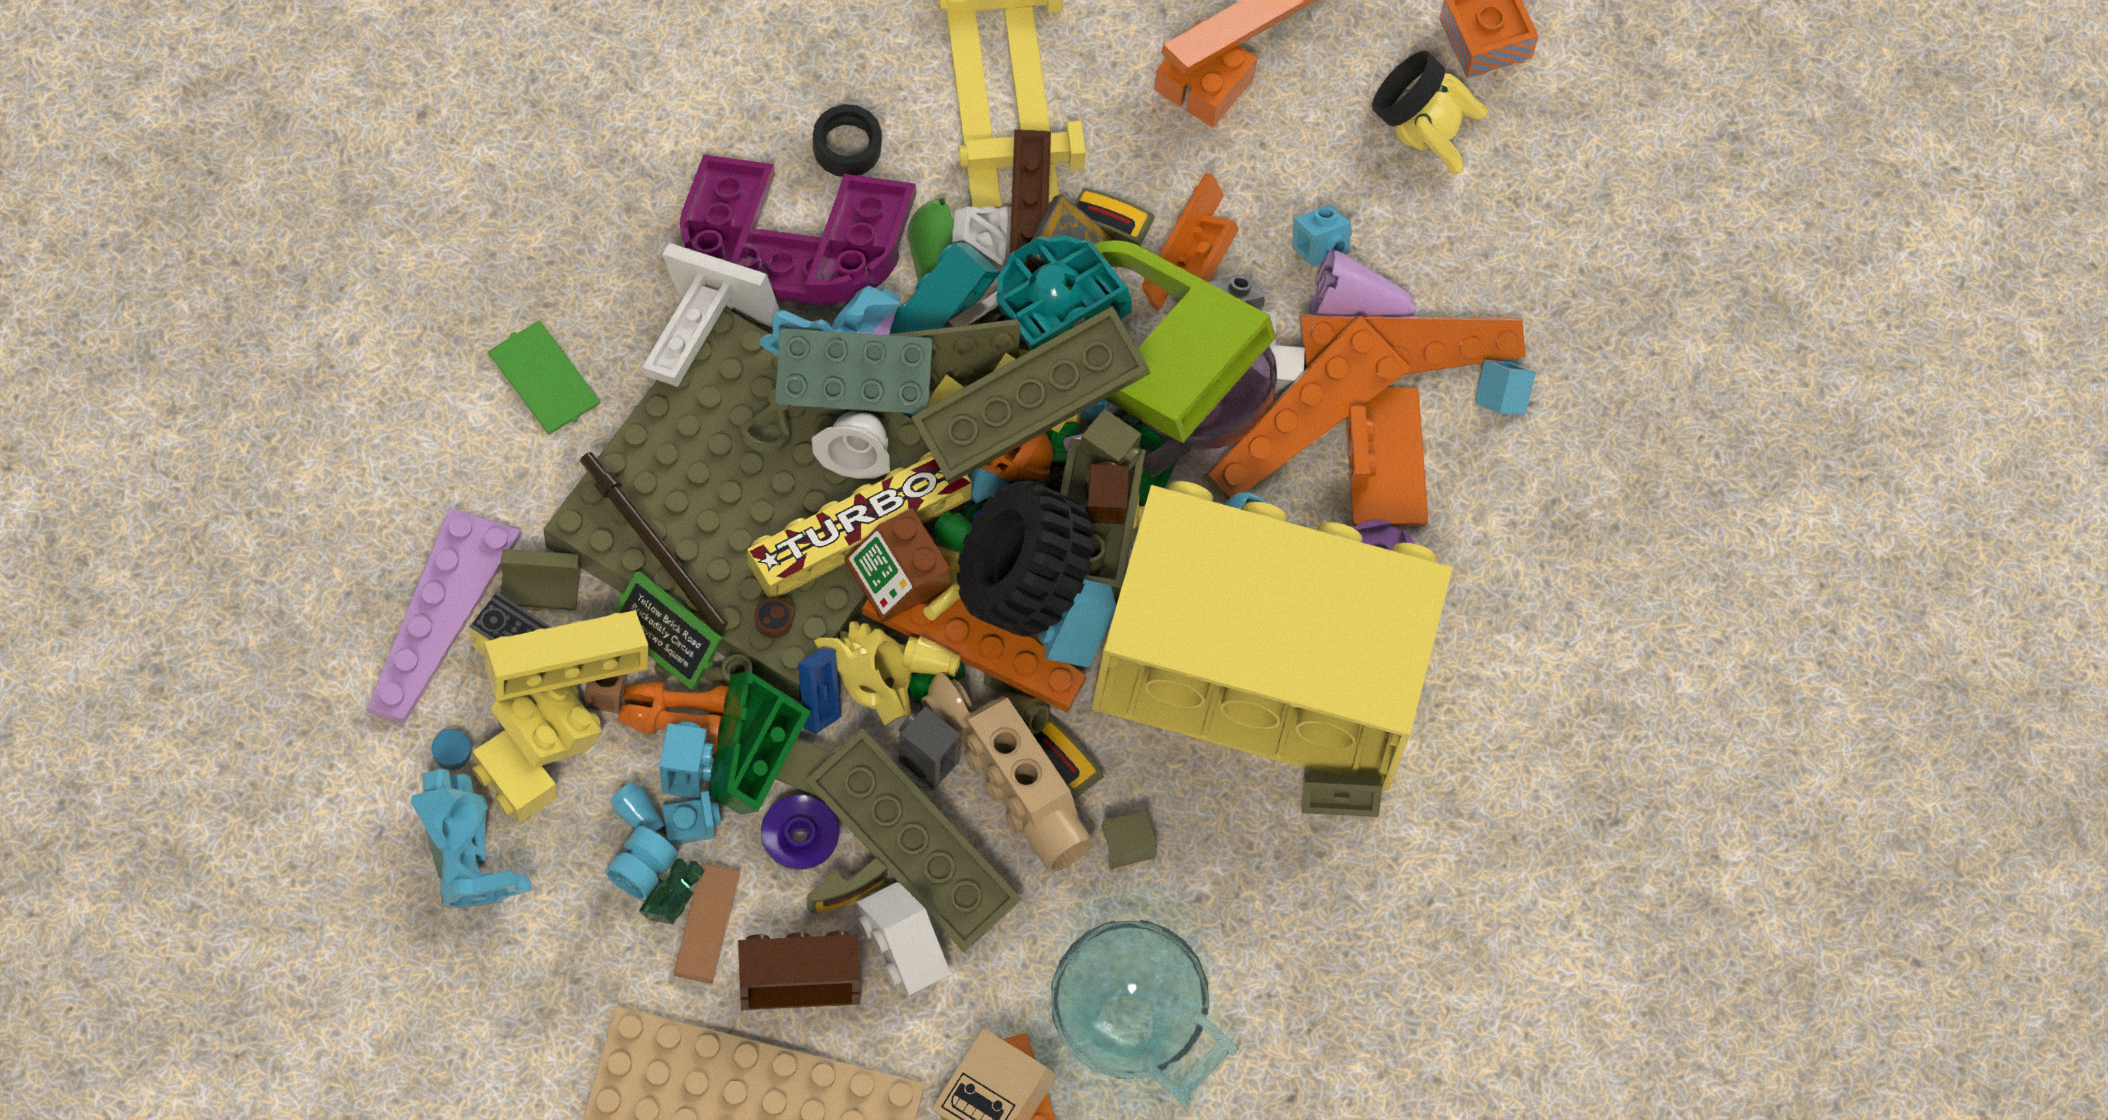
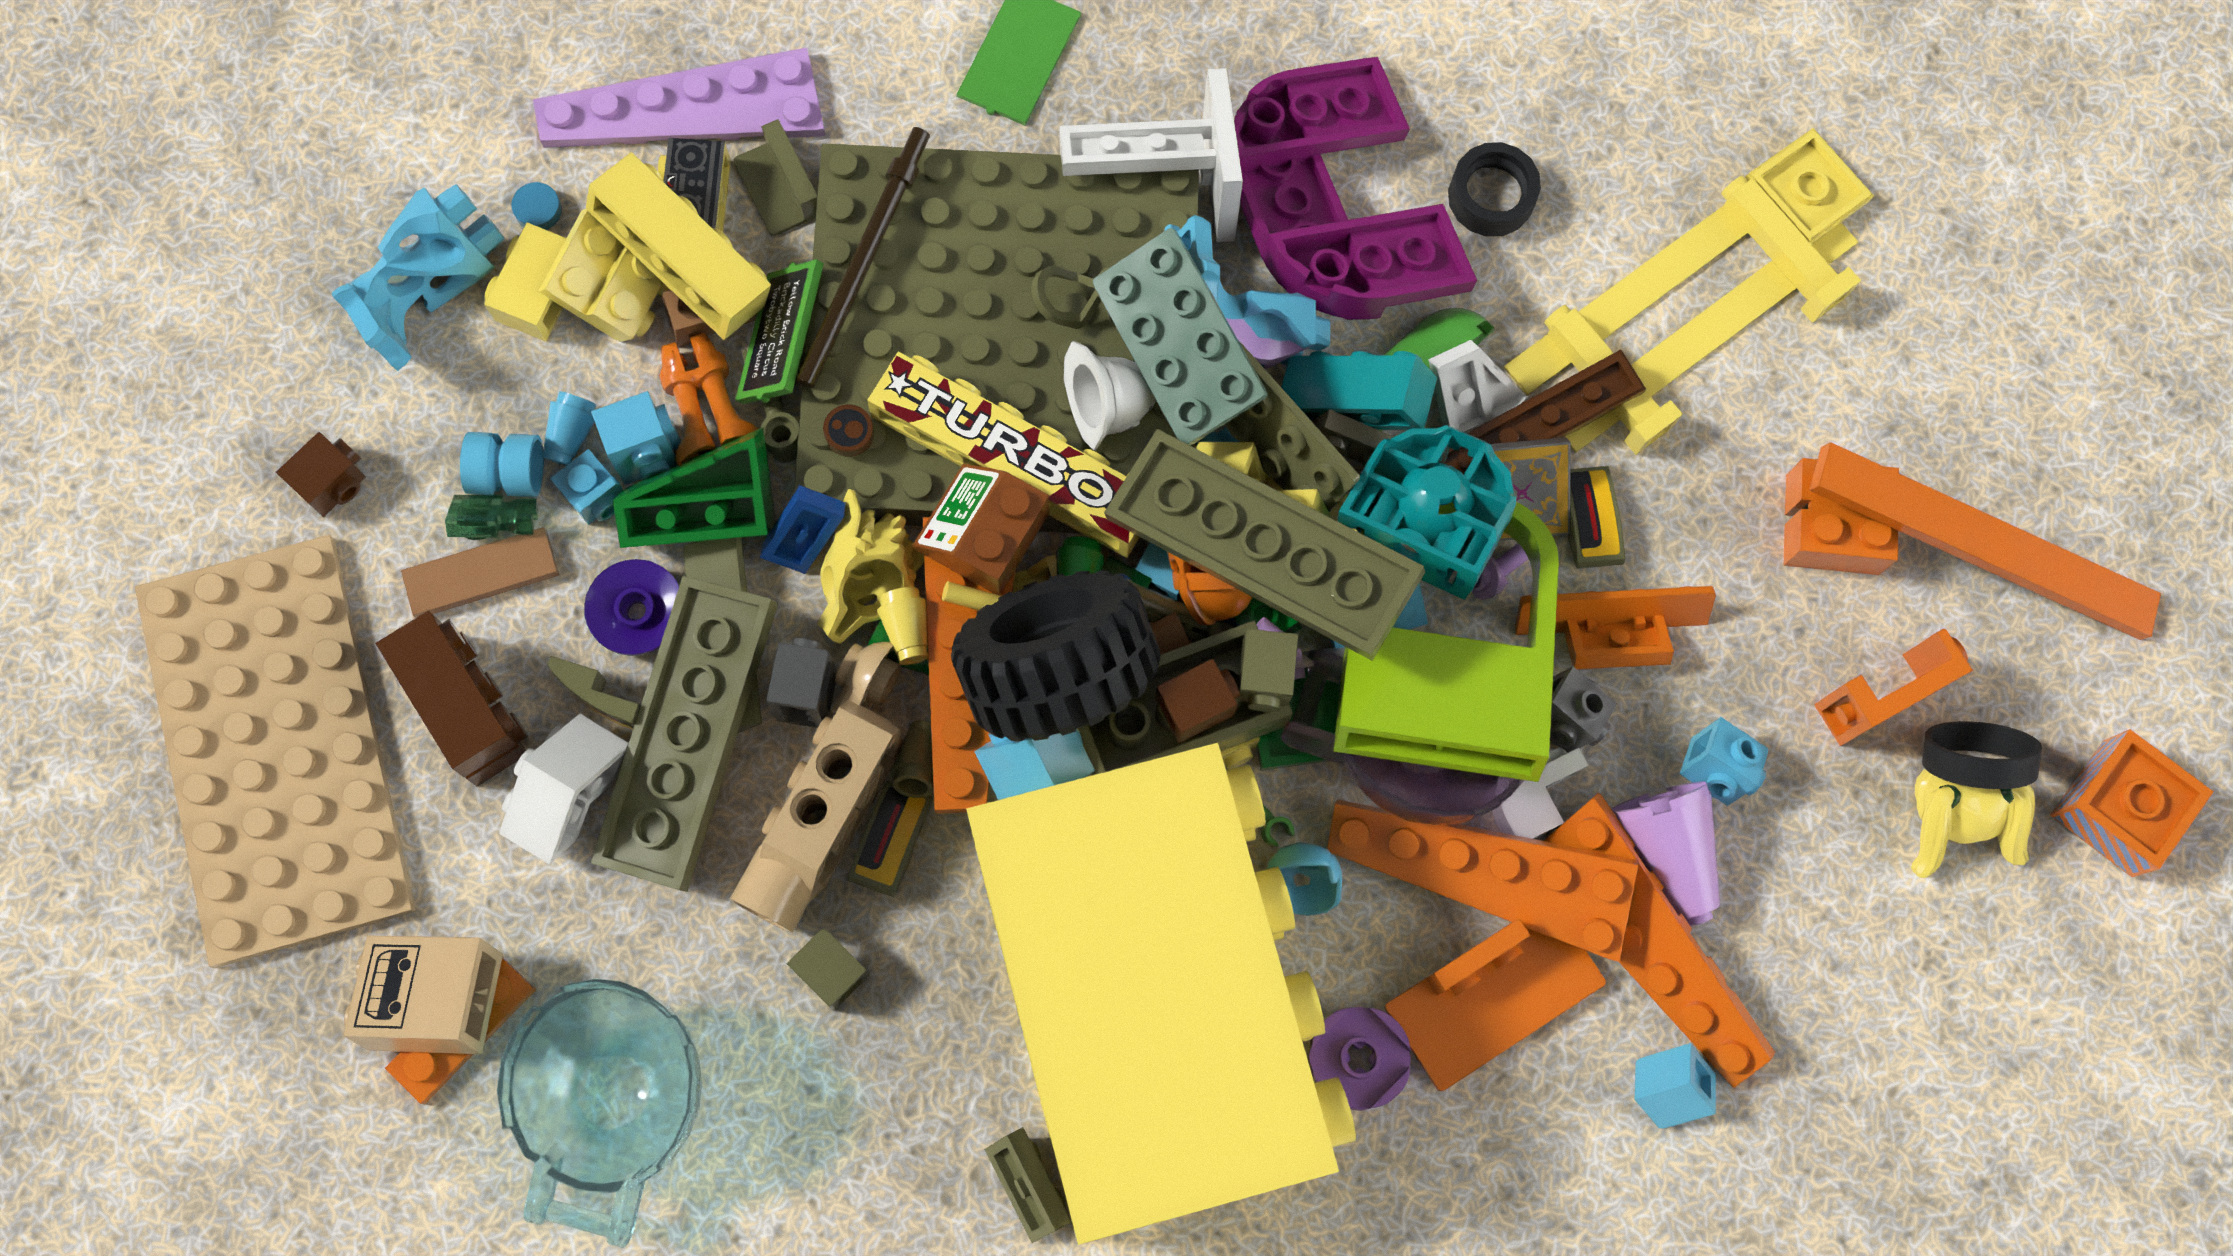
camera: 60 degrees right, 10 degrees up
(570, 985) = (323, 473): none -> reddish brown brick
(1337, 137) = (1855, 707): none -> orange panel

